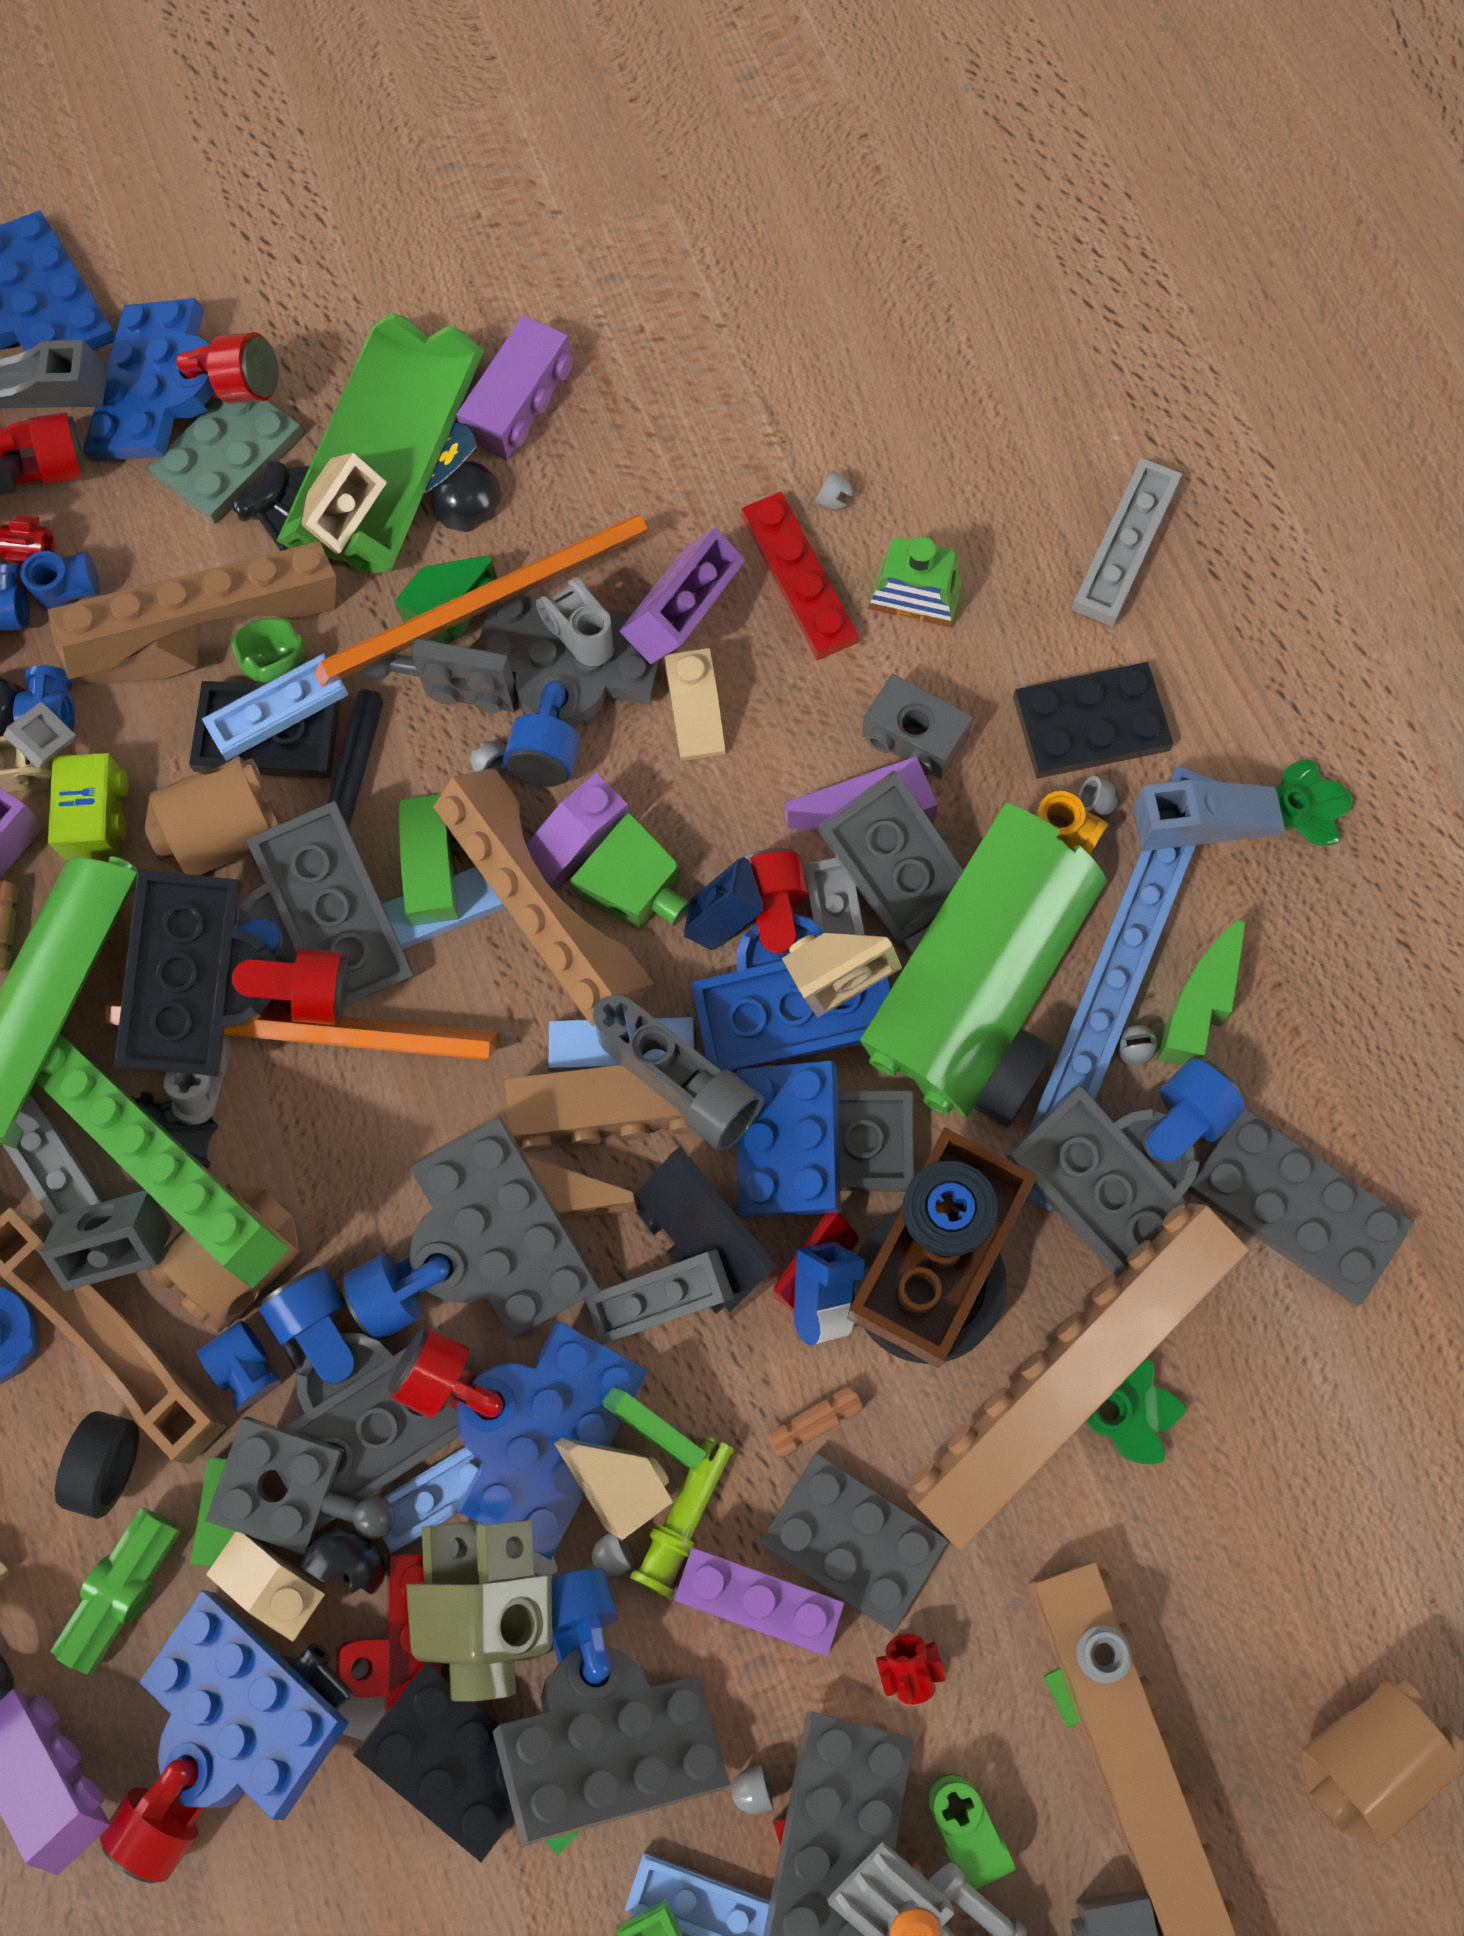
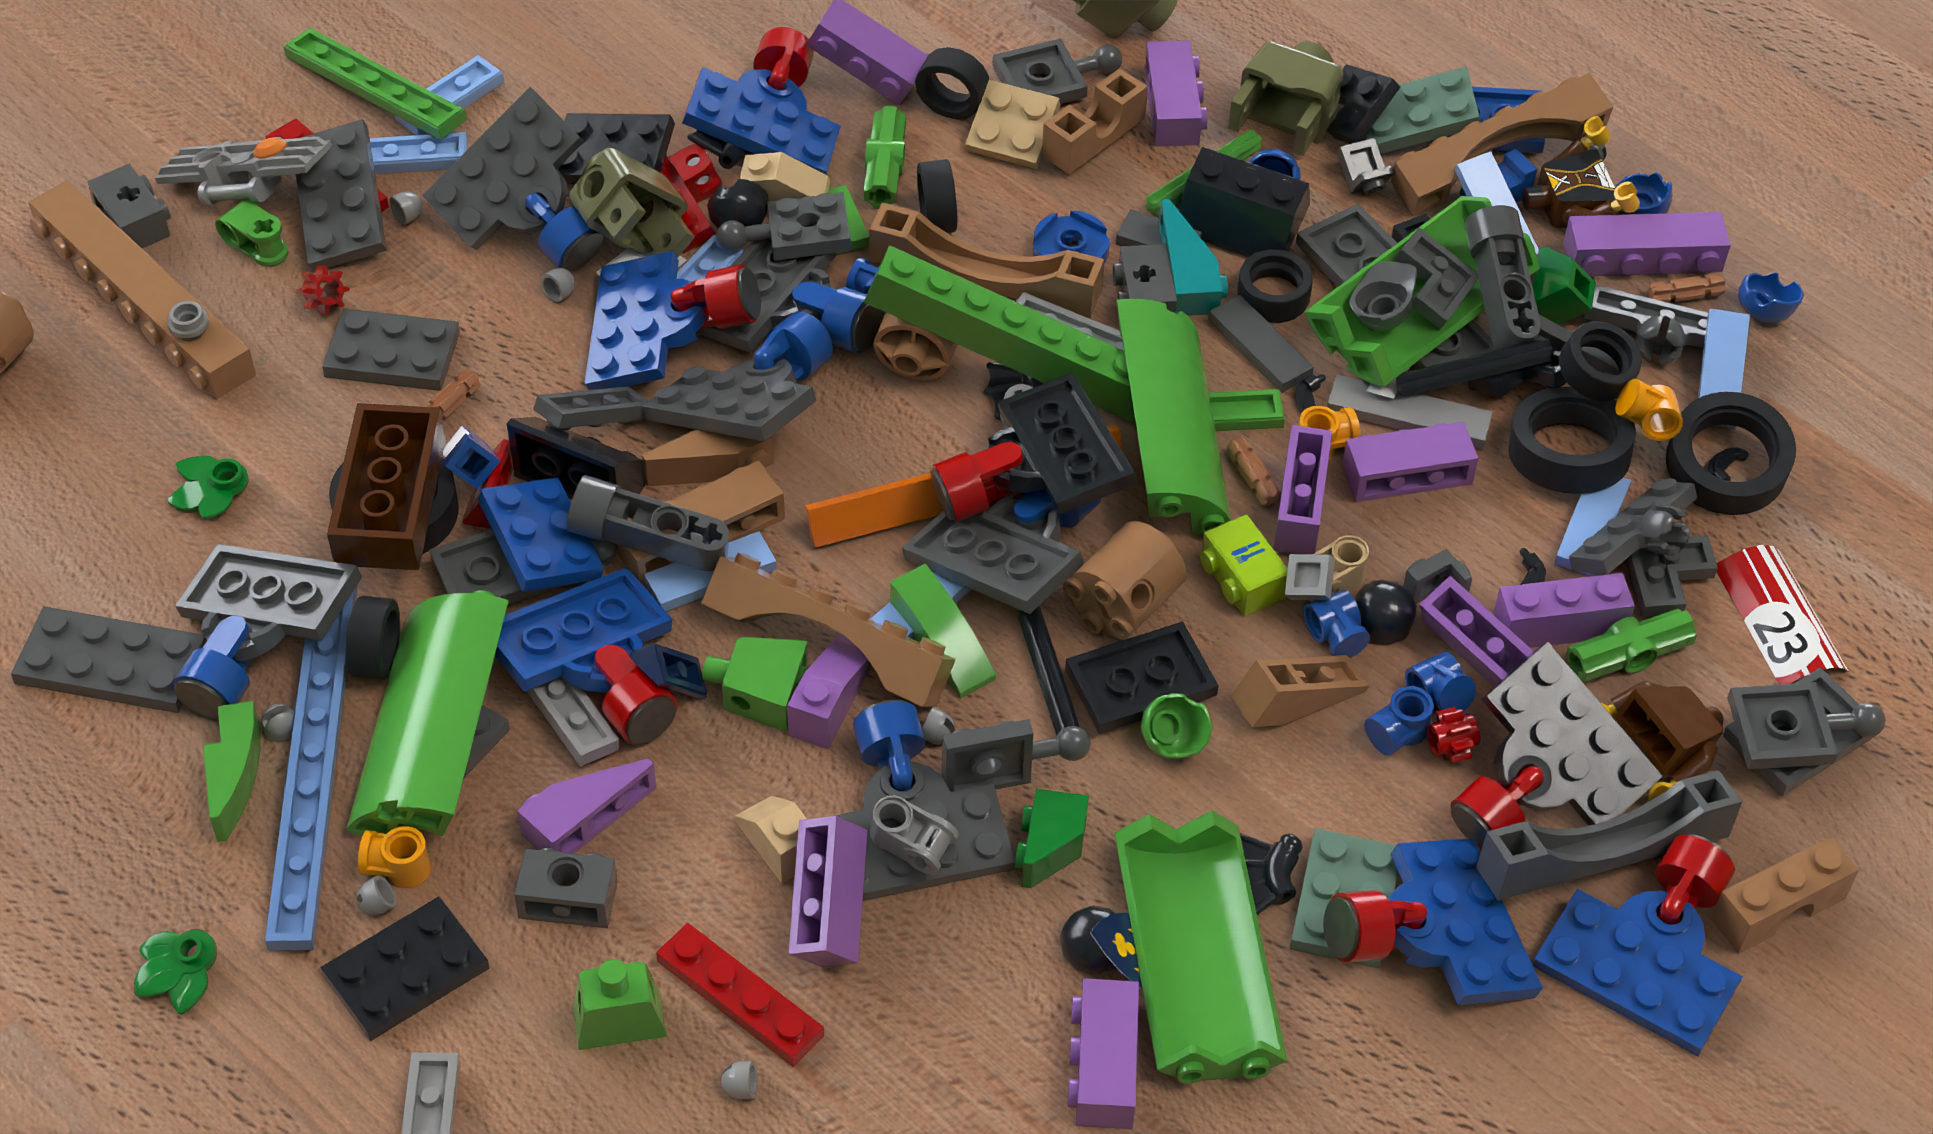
camera: 150 degrees right, 20 degrees down
(106, 1240) = (1023, 277): dark grey brick -> none
(111, 627) = (1212, 752): medium nougat arch -> none
(271, 709) = (1138, 684): light blue tile -> none
(340, 500) = (1193, 857): tan slope -> none
(479, 600) = (1001, 818): orange tile -> none
(617, 1483) = (574, 304): tan slope -> none
(653, 1428) = (561, 341): bright green tile -> none
(673, 1539) = (519, 302): lime pin -> none
(759, 1601) = (444, 287): medium lavender brick -> none
(839, 967) = (543, 621): tan slope -> none
(893, 855) = (538, 755): dark grey plate -> none
(966, 1187) = (396, 466): black bush -> none
(1075, 1373) = (254, 478): medium nougat brick -> none
(1205, 813) = (269, 880): sand blue slope -> none

